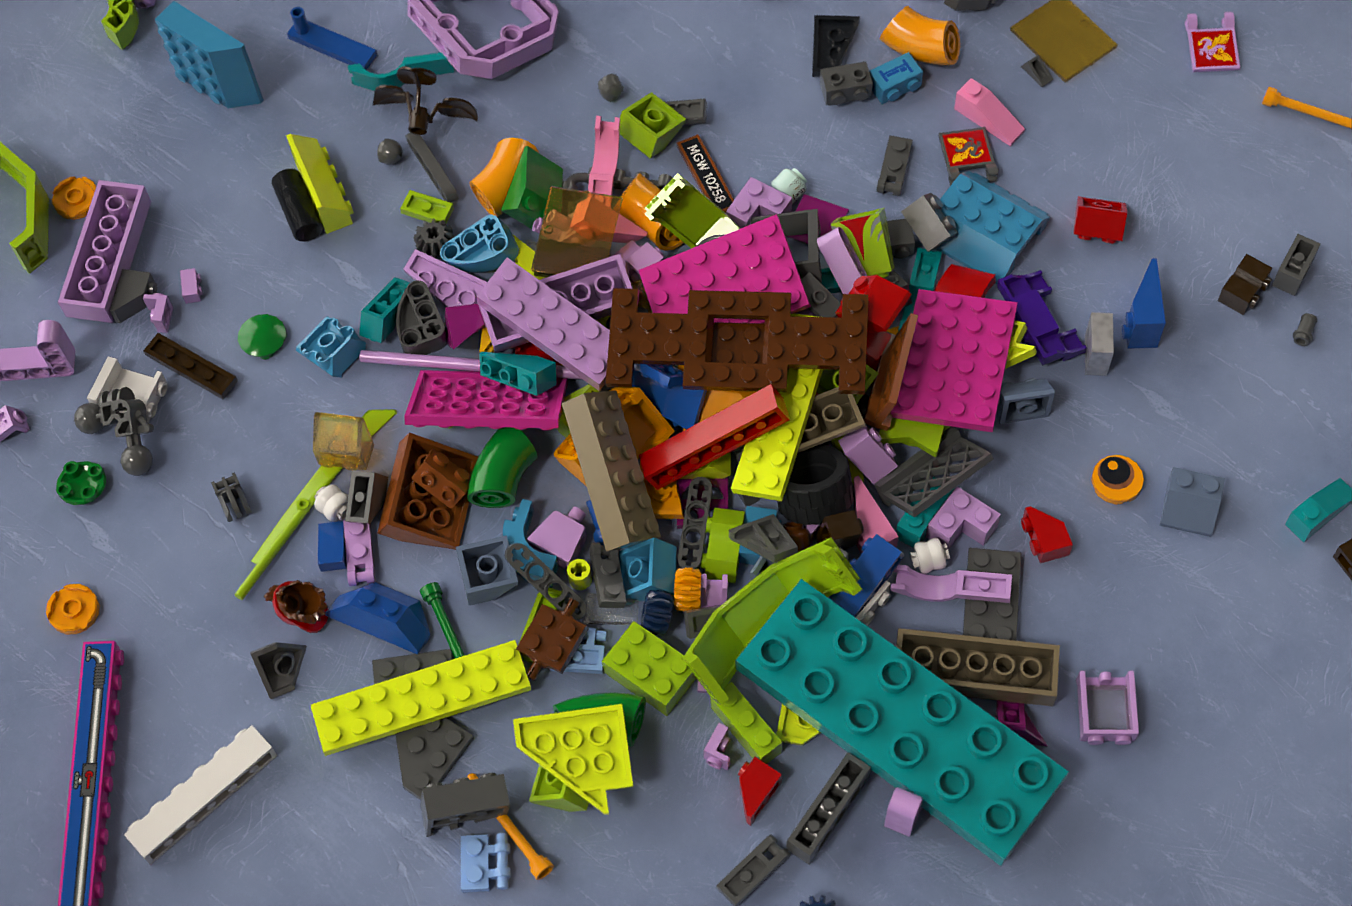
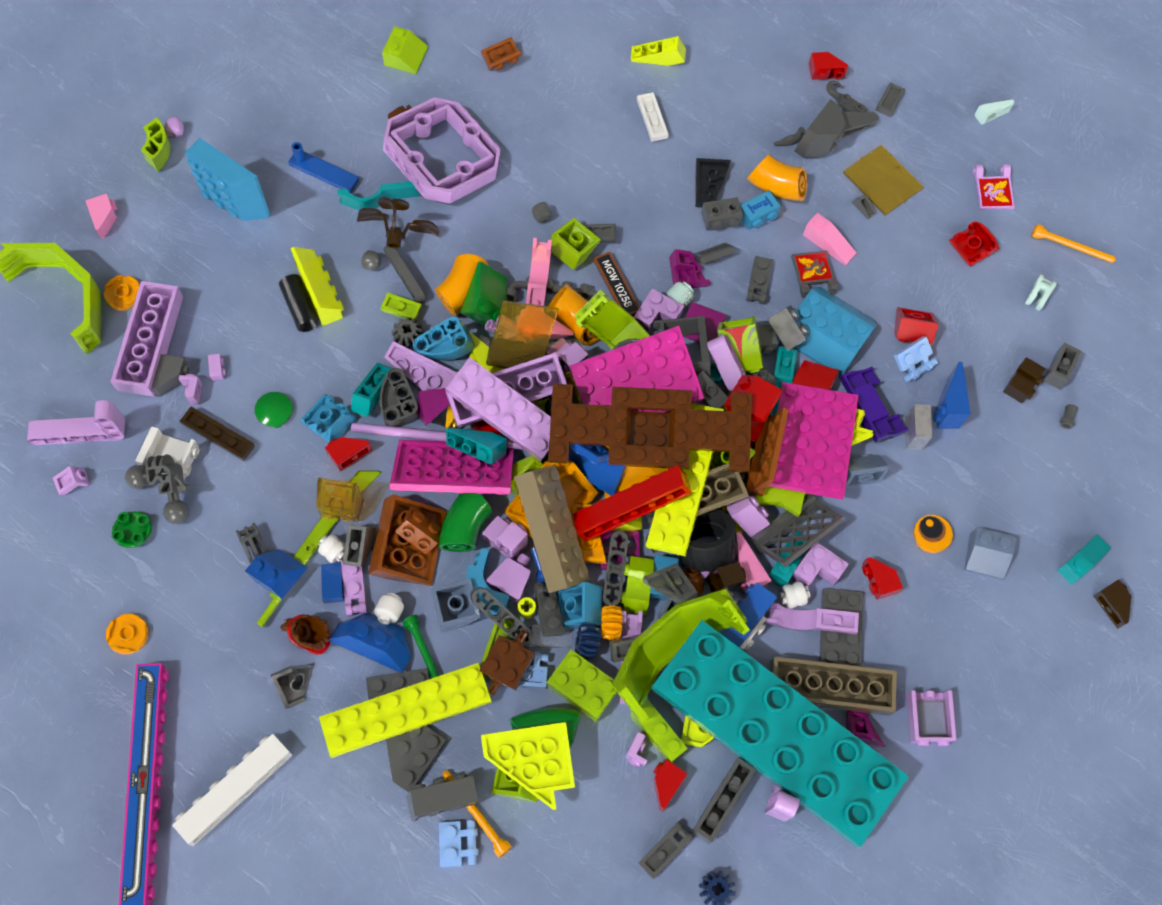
camera: 10 degrees left, 5 degrees up
(52, 102) = (102, 213): none -> bright pink slope
(259, 531) = (276, 571): none -> blue slope
(354, 384) = (347, 451): none -> red slope
(402, 575) = (389, 608): none -> white head
(555, 487) = (506, 537): none -> lavender brick
(798, 153) = (686, 269): none -> magenta slope
(834, 133) = (714, 253): none -> dark grey plate
(1093, 254) = (911, 355): none -> light blue plate
(1183, 113) = (974, 243): none -> red slope
(1274, 166) = (1043, 287): none -> light aqua piece

